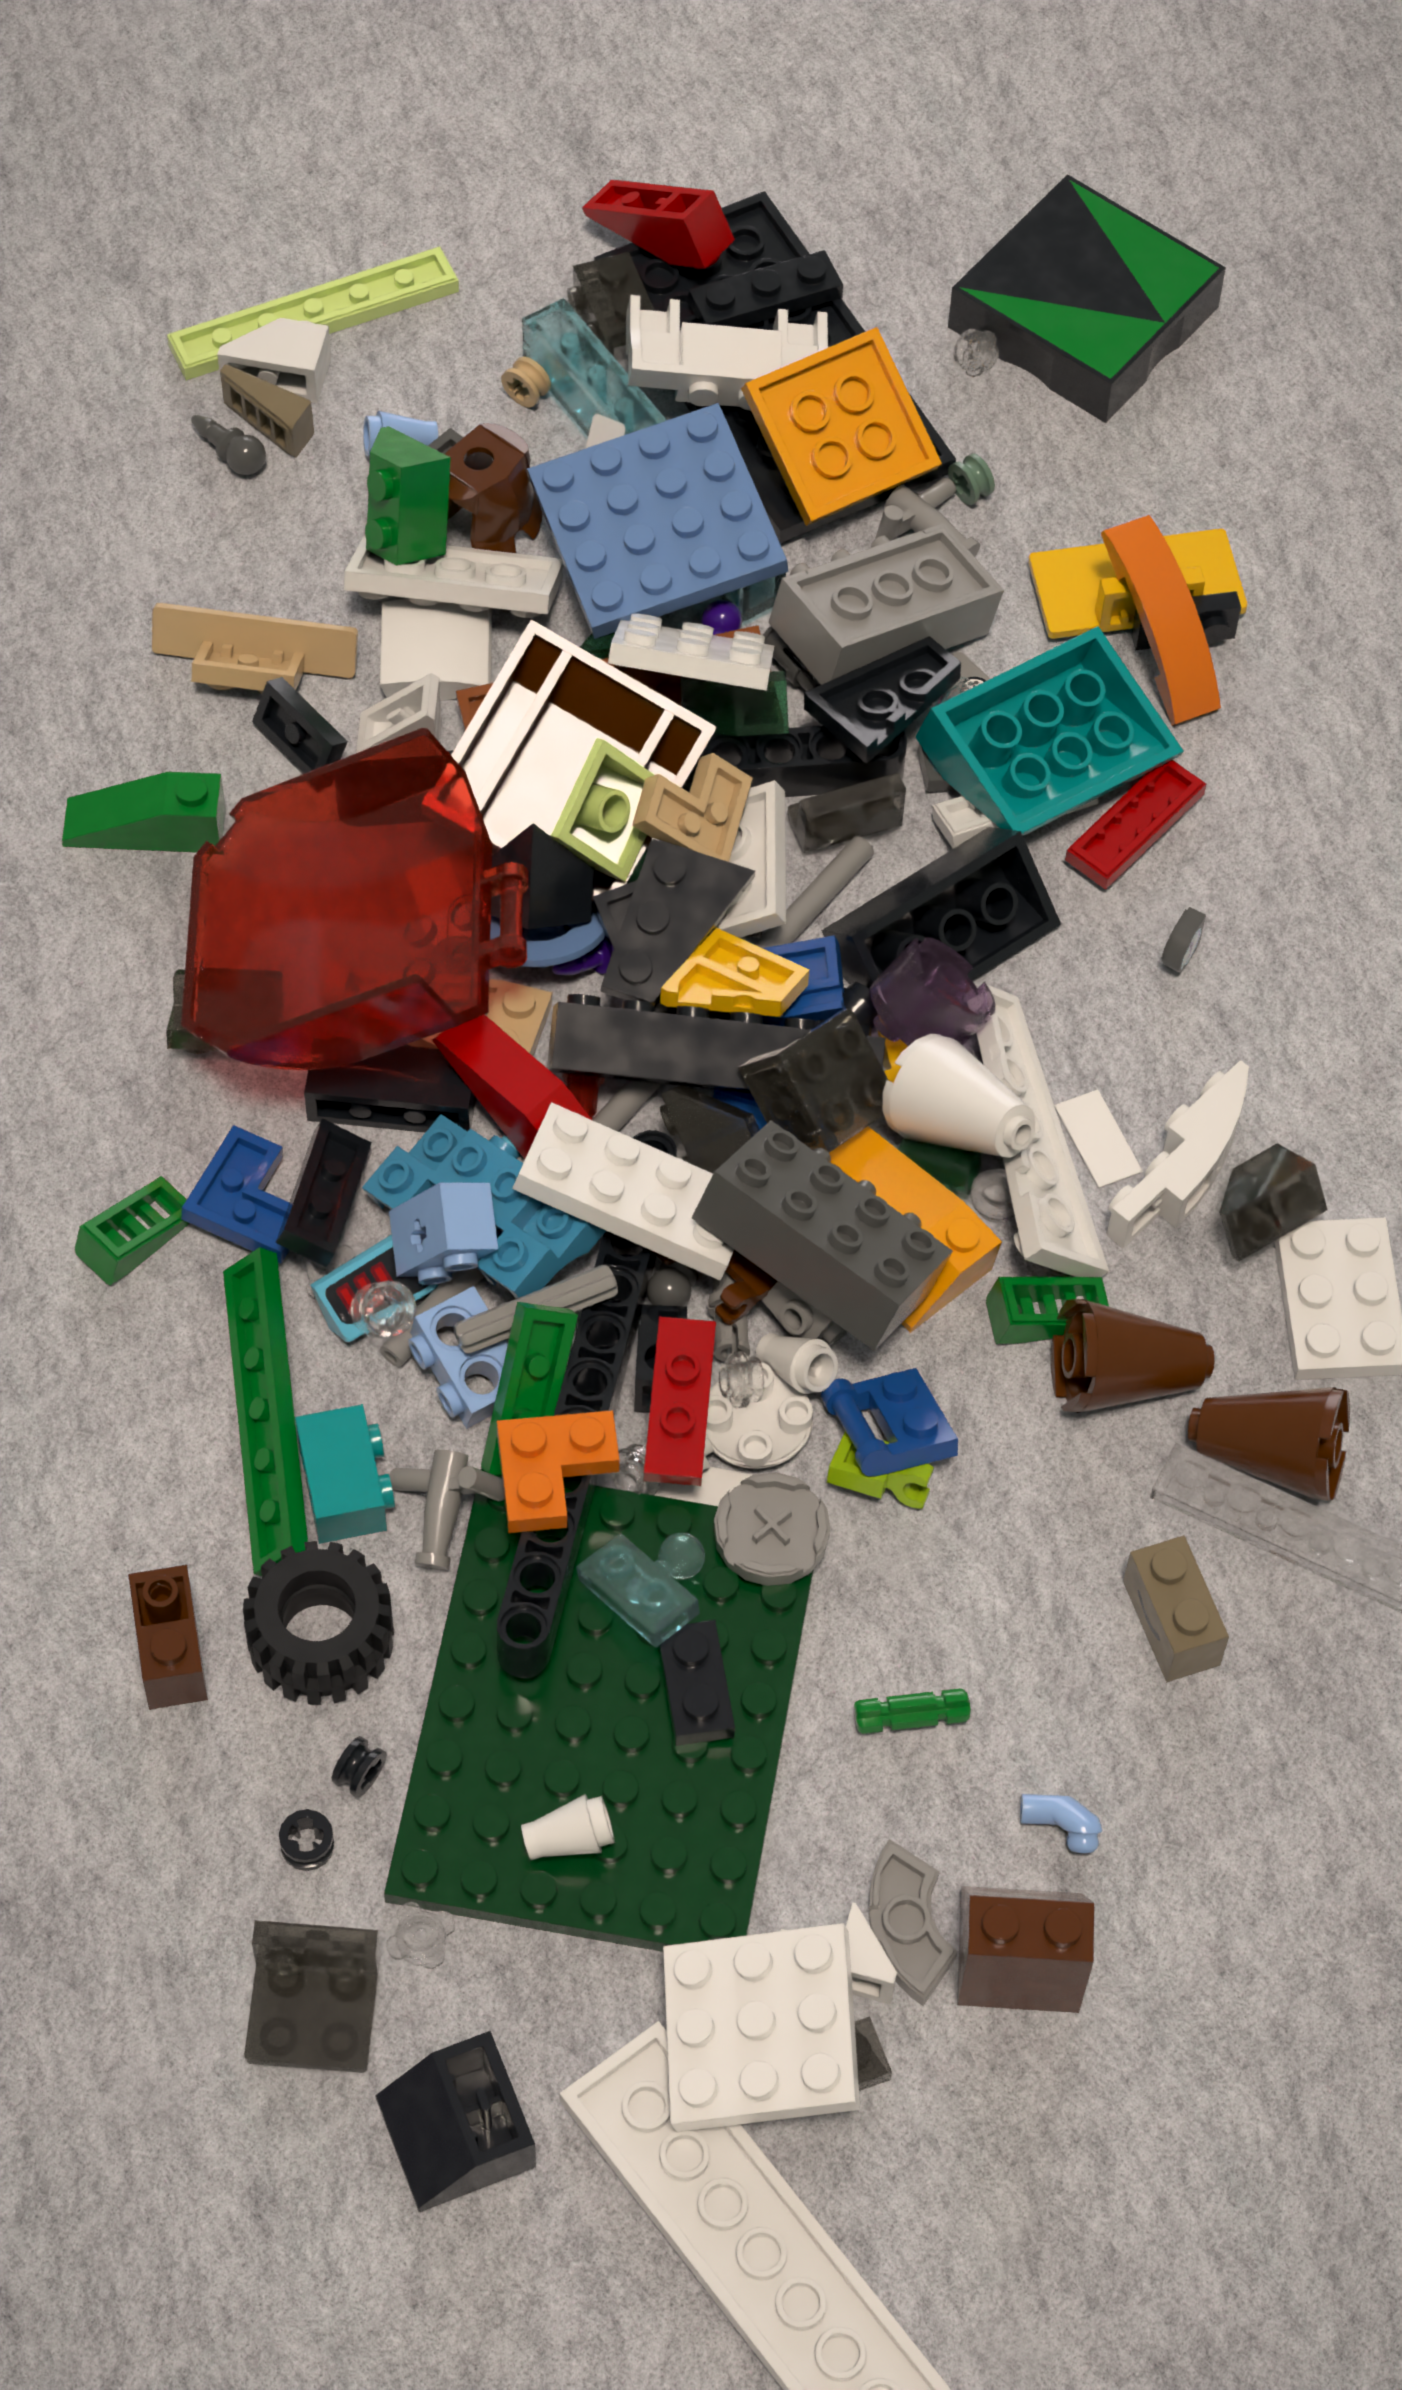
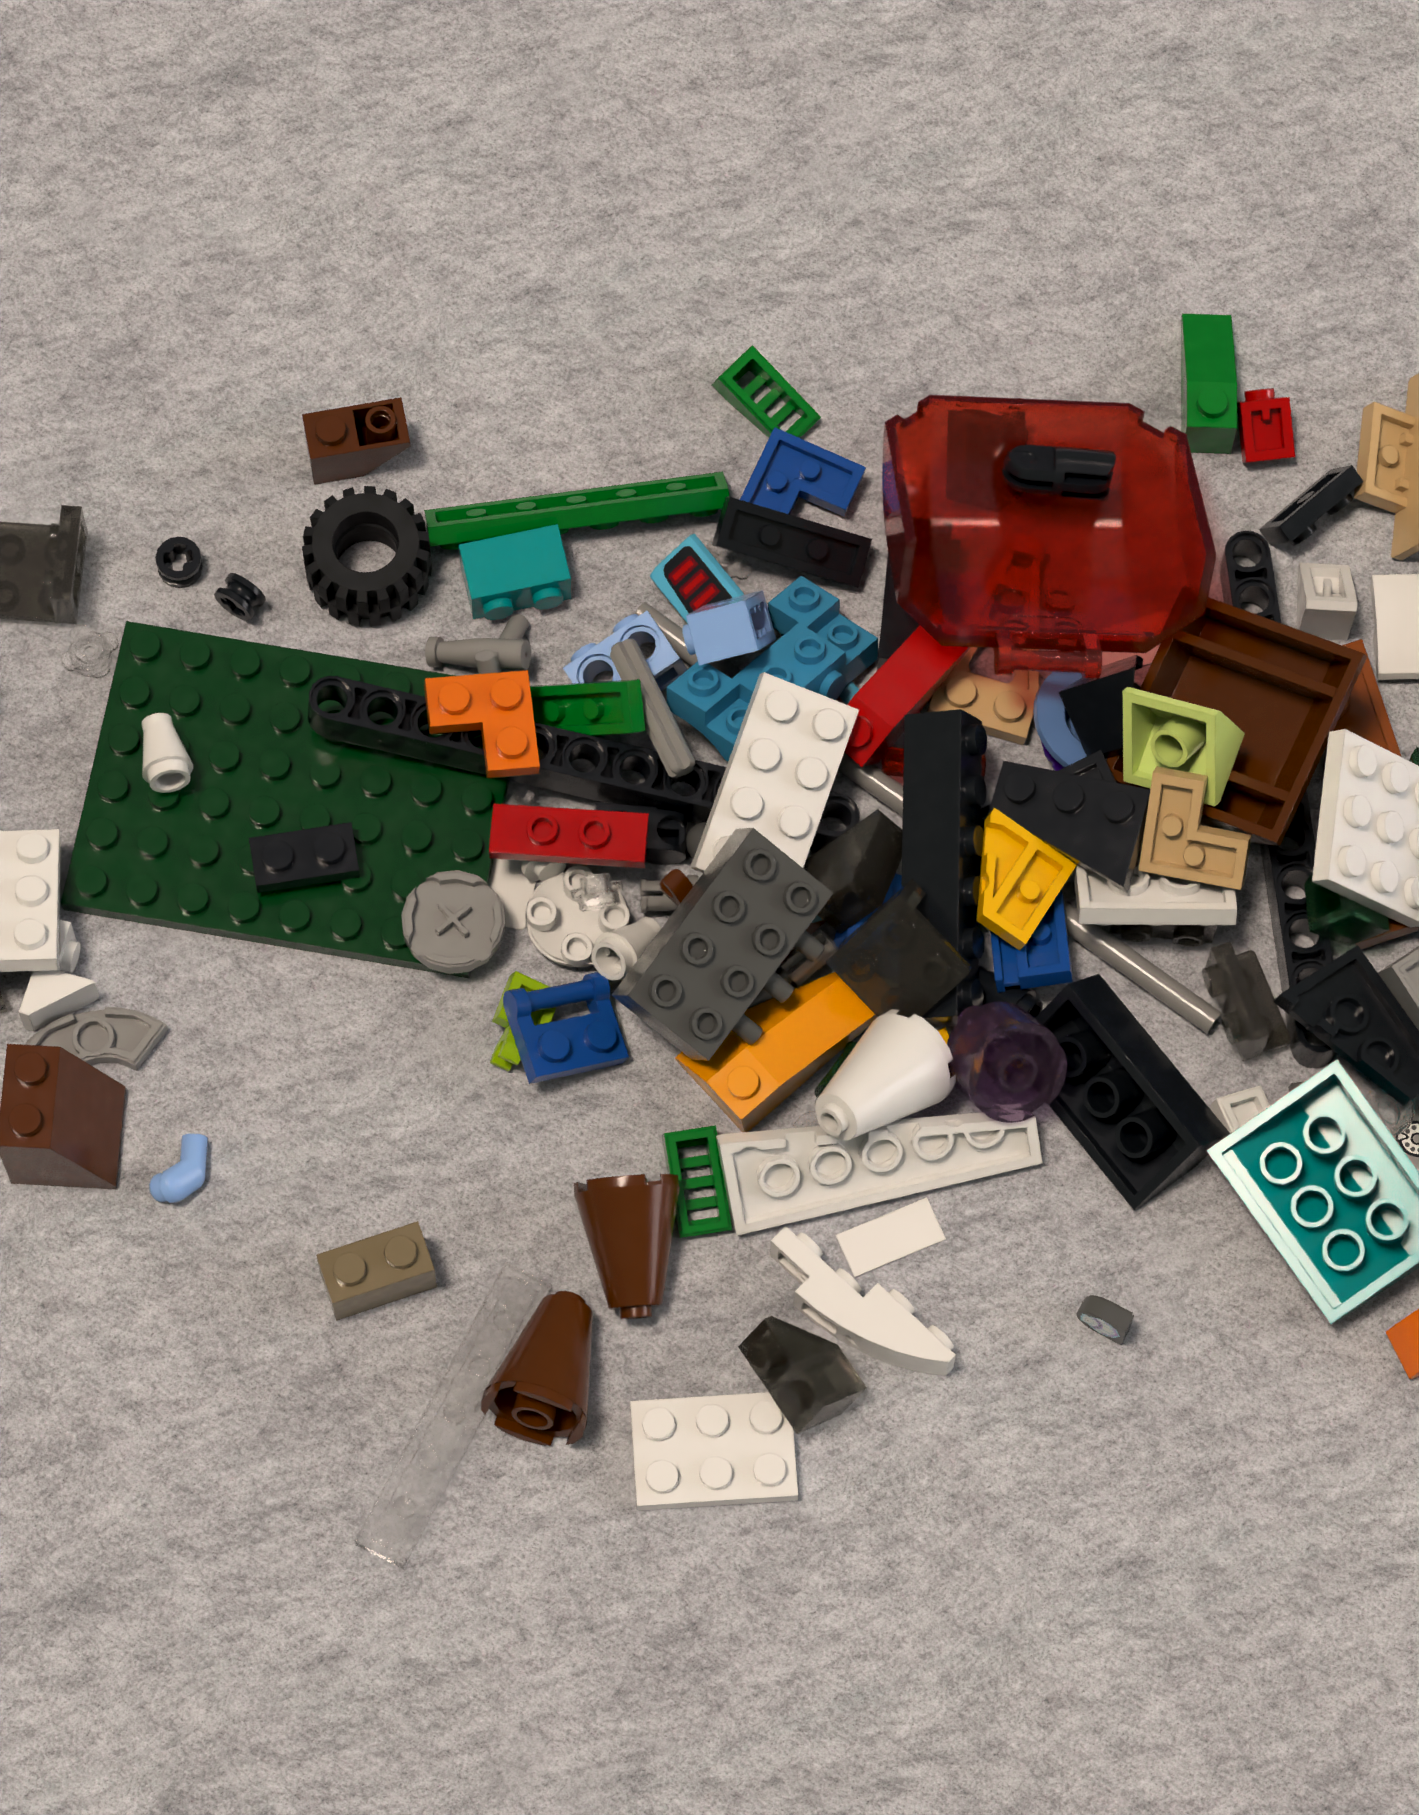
camera: 90 degrees right, 10 degrees up
(208, 755) = (1265, 426): none -> red bracket
(272, 917) = (1060, 471): none -> black arm
(371, 1310) = (680, 598): clear wheel -> none
(644, 1589) = (390, 808): clear light blue plate -> none
(912, 1711) = (287, 1047): green axle -> none
(1135, 823) = (1253, 1282): red plate -> none

